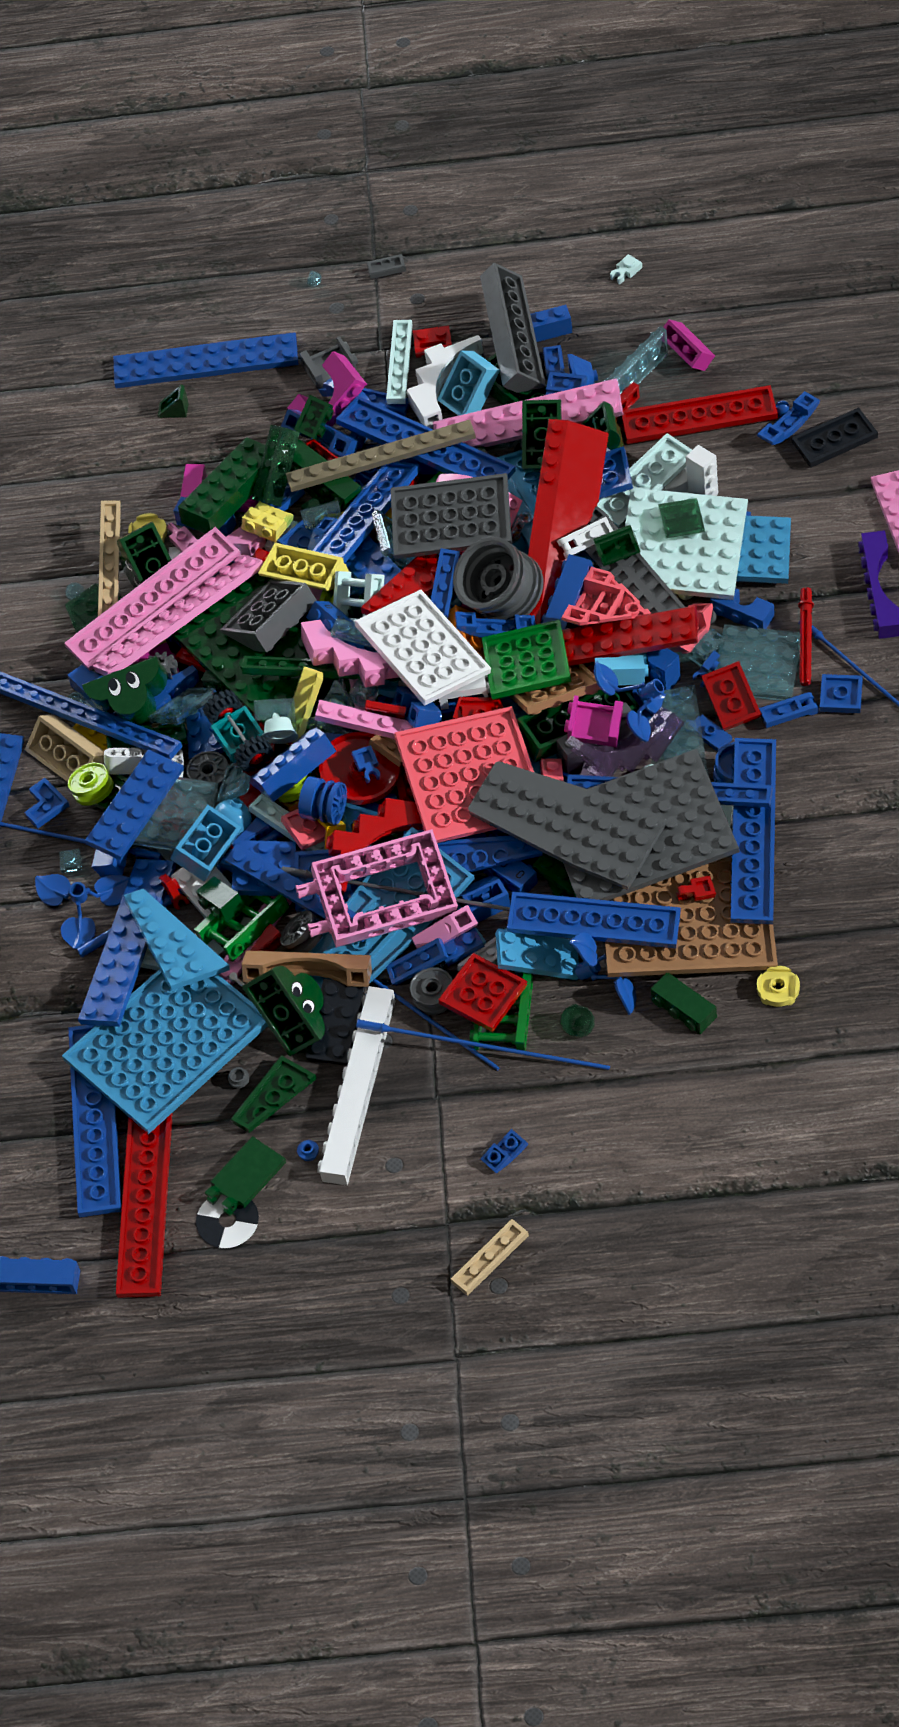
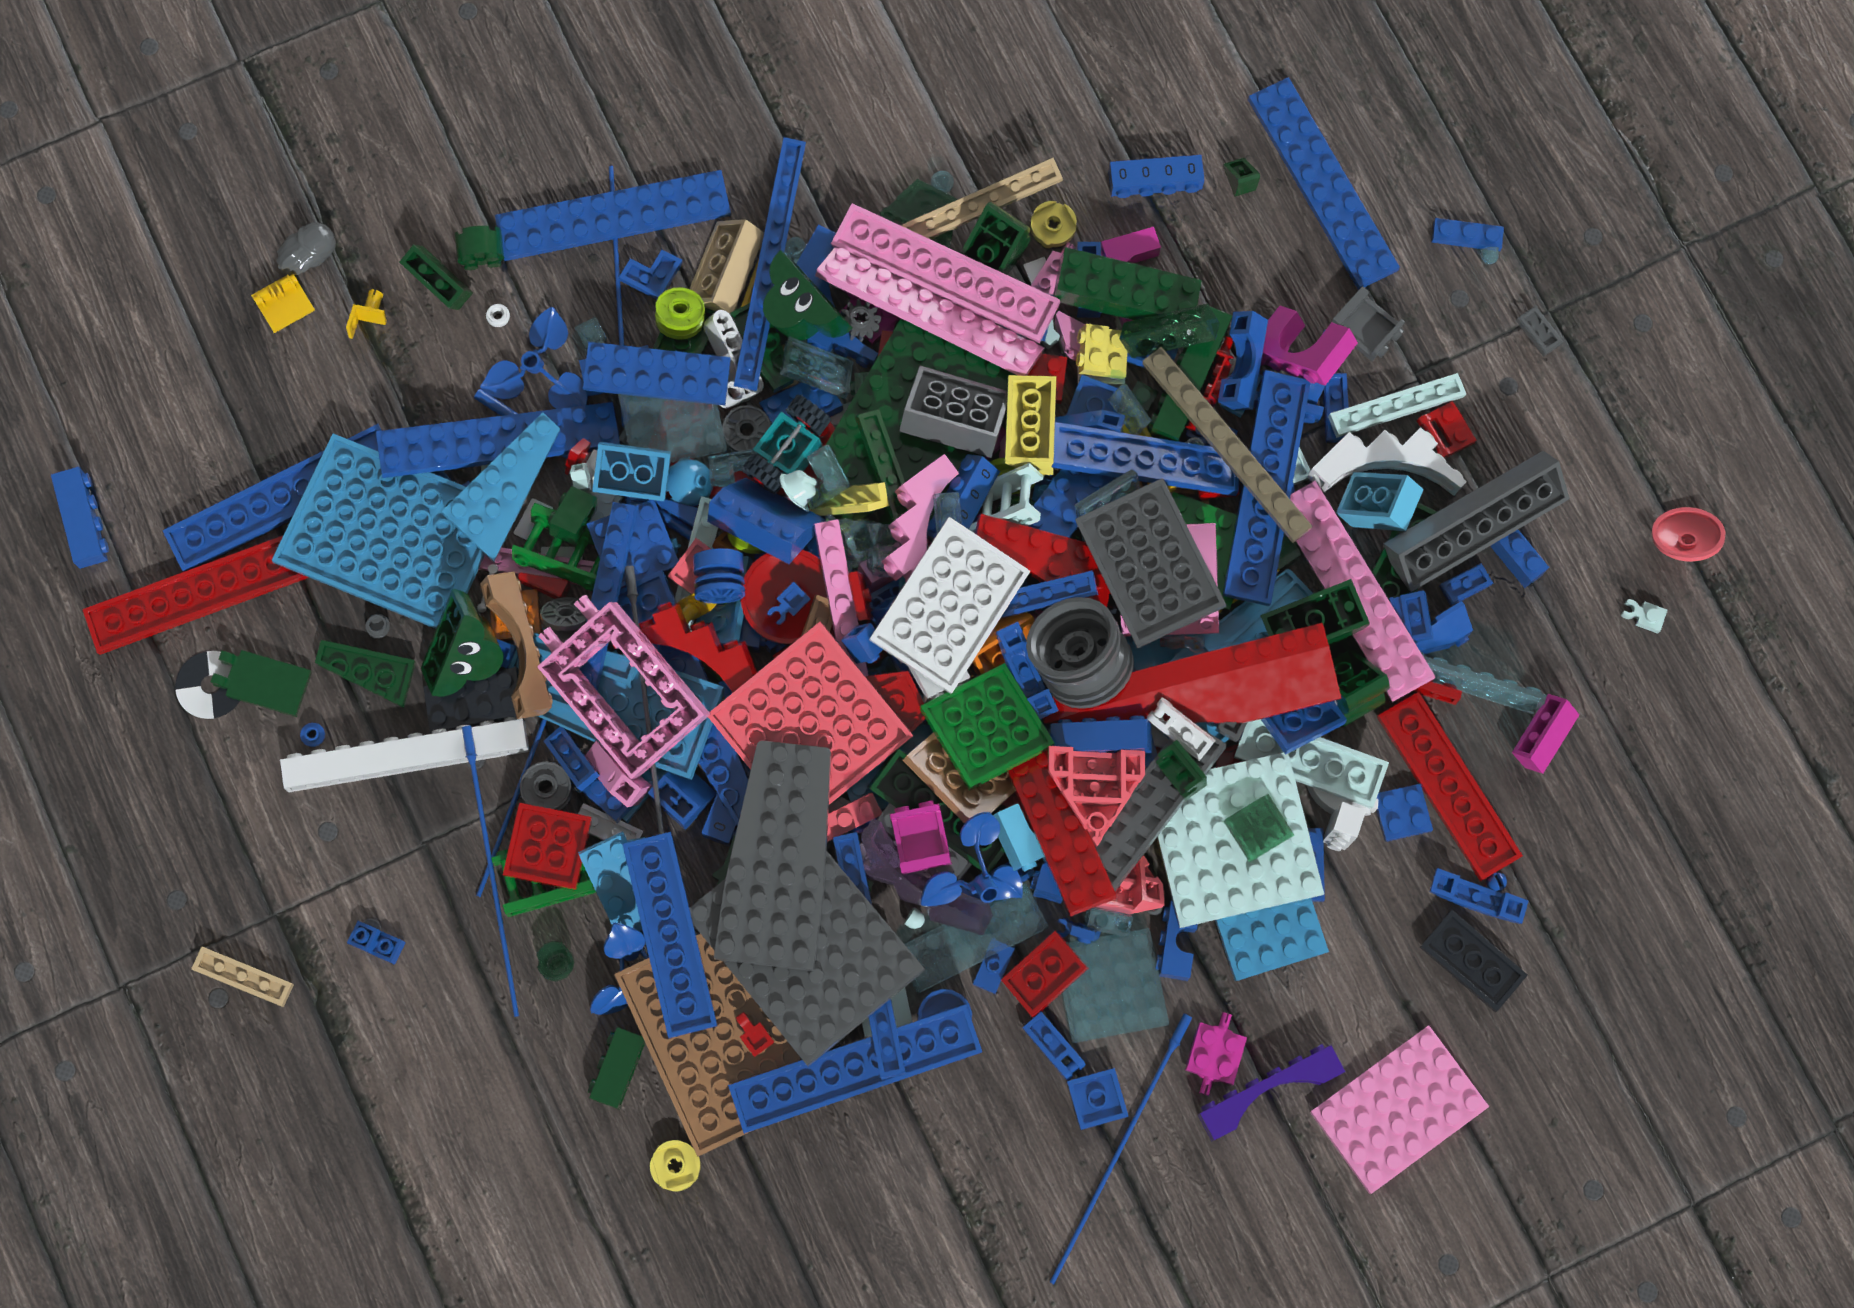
camera: 55 degrees right, 20 degrees up
(19, 916) = (498, 309): none -> white plate
(145, 456) = (1156, 176): none -> blue brick
(189, 887) = (581, 477): none -> light aqua piece
(290, 288) = (1467, 234): none -> blue plate
(314, 418) = (1249, 345): dark green bracket -> none
(580, 222) = (1688, 534): none -> coral dish
(711, 441) = (1403, 813): none -> blue plate
(805, 635) = (1162, 1029): red axle -> none
(838, 612) = (1215, 1054): none -> dark pink plate

